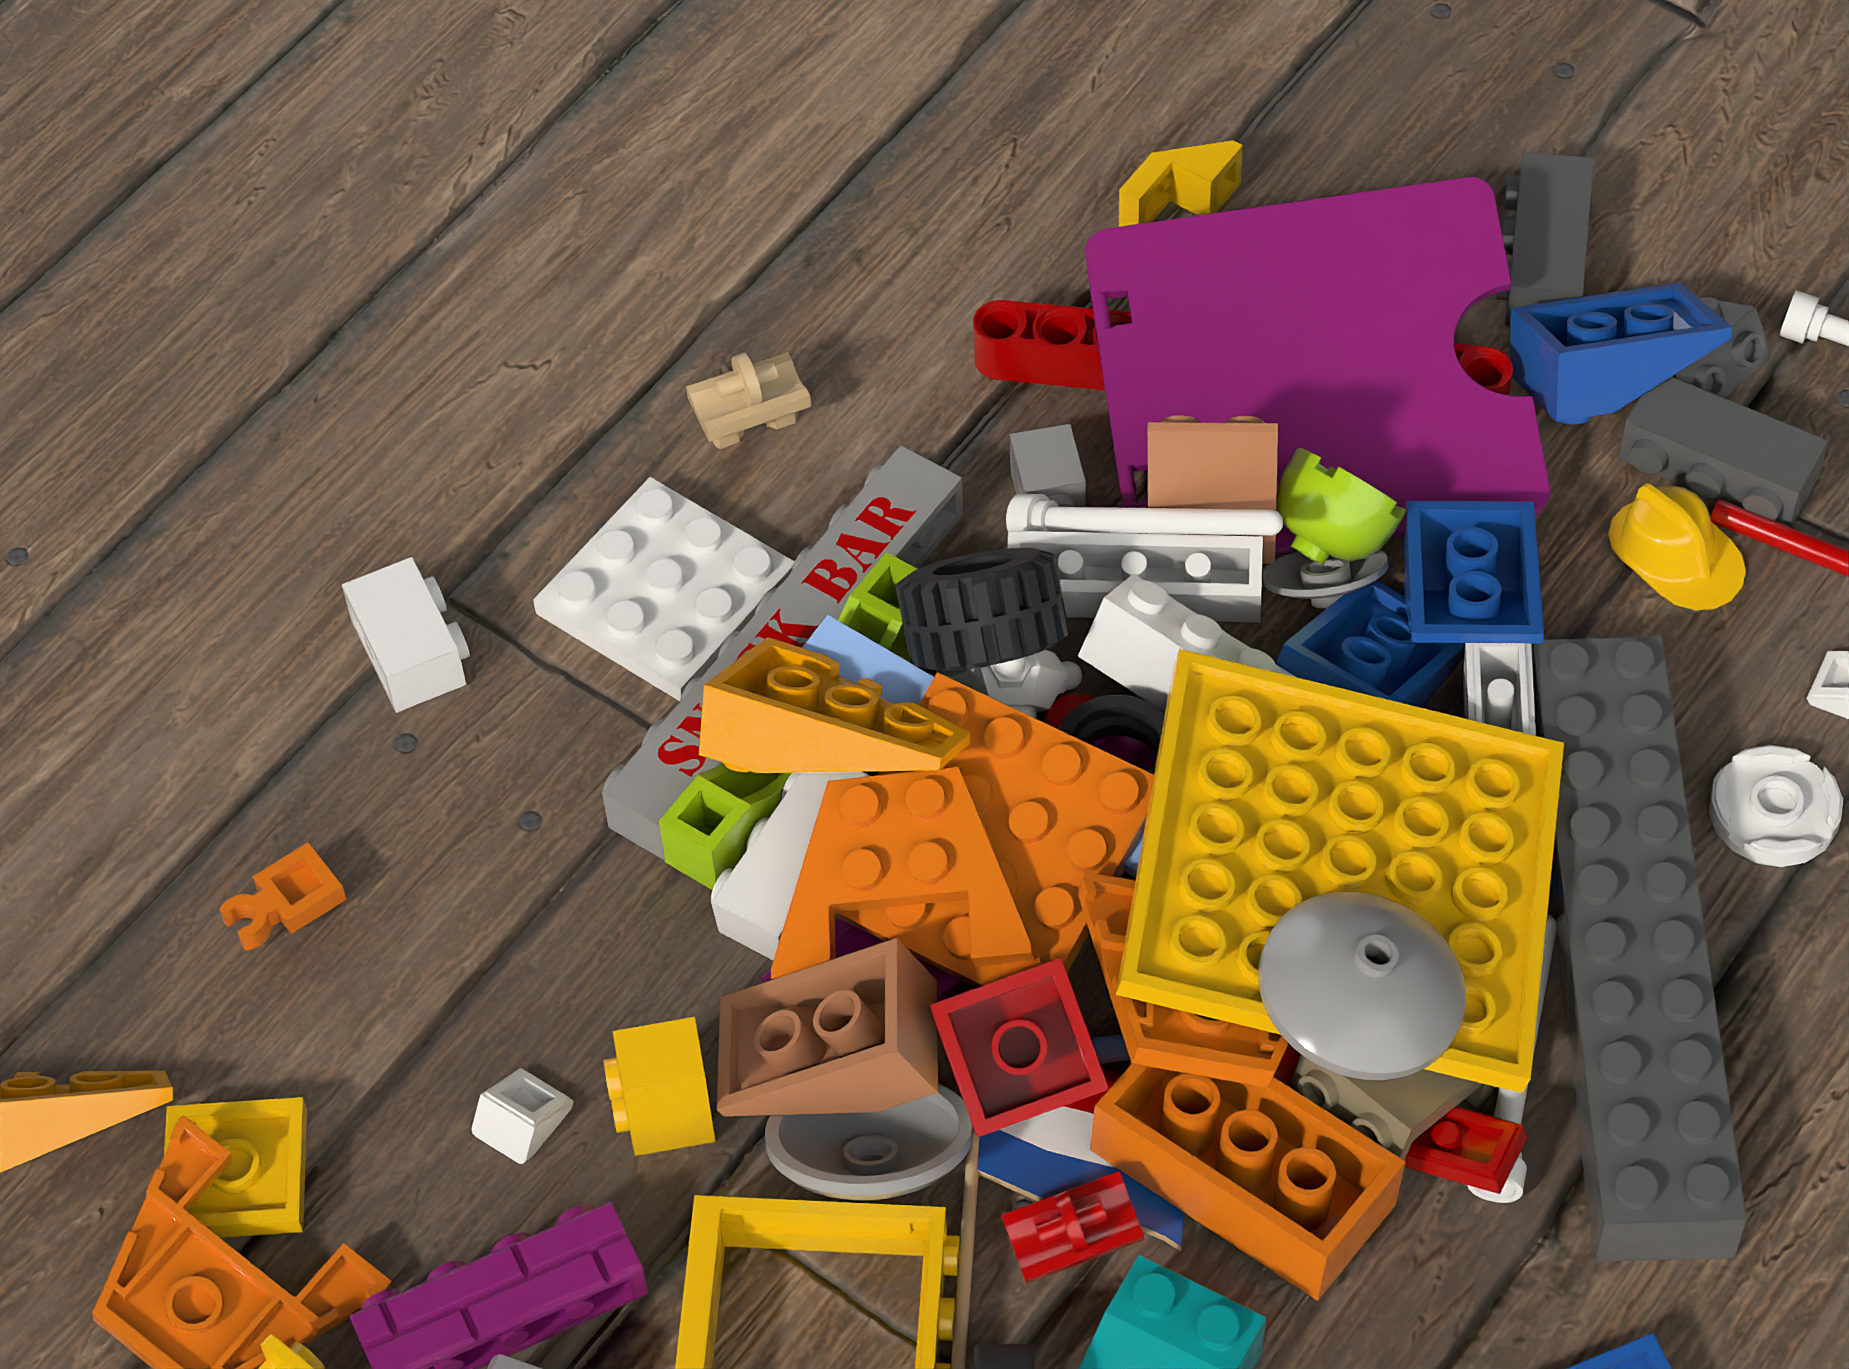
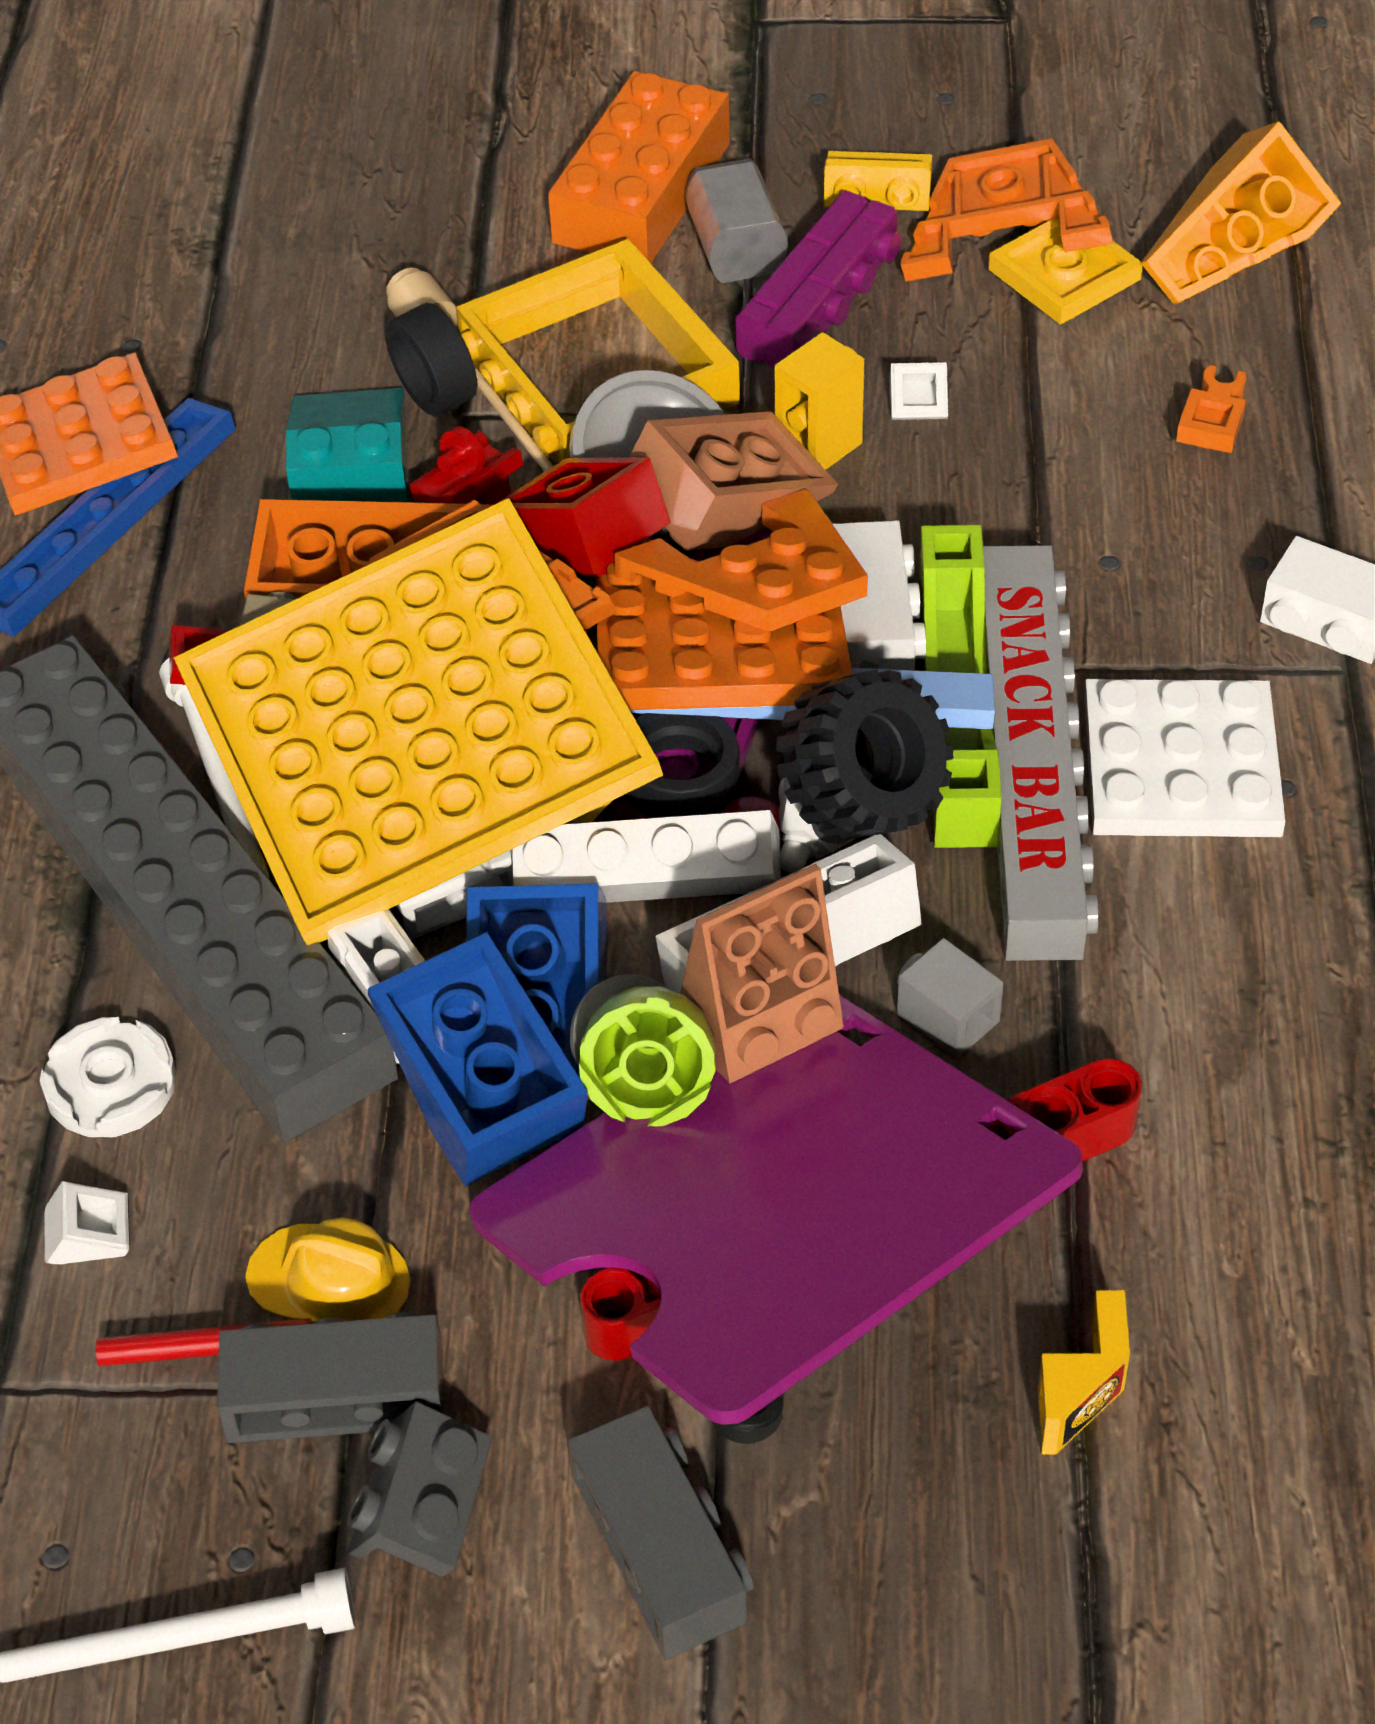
camera: 145 degrees right, 5 degrees down
(748, 397) = (1266, 916): tan hips -> none
(796, 714) = (920, 610): light orange wedge -> none
(1040, 513) = (914, 921): white piece -> none
(1353, 1012) = (335, 620): light grey dish -> none
(1609, 347) = (495, 1391): blue slope -> none

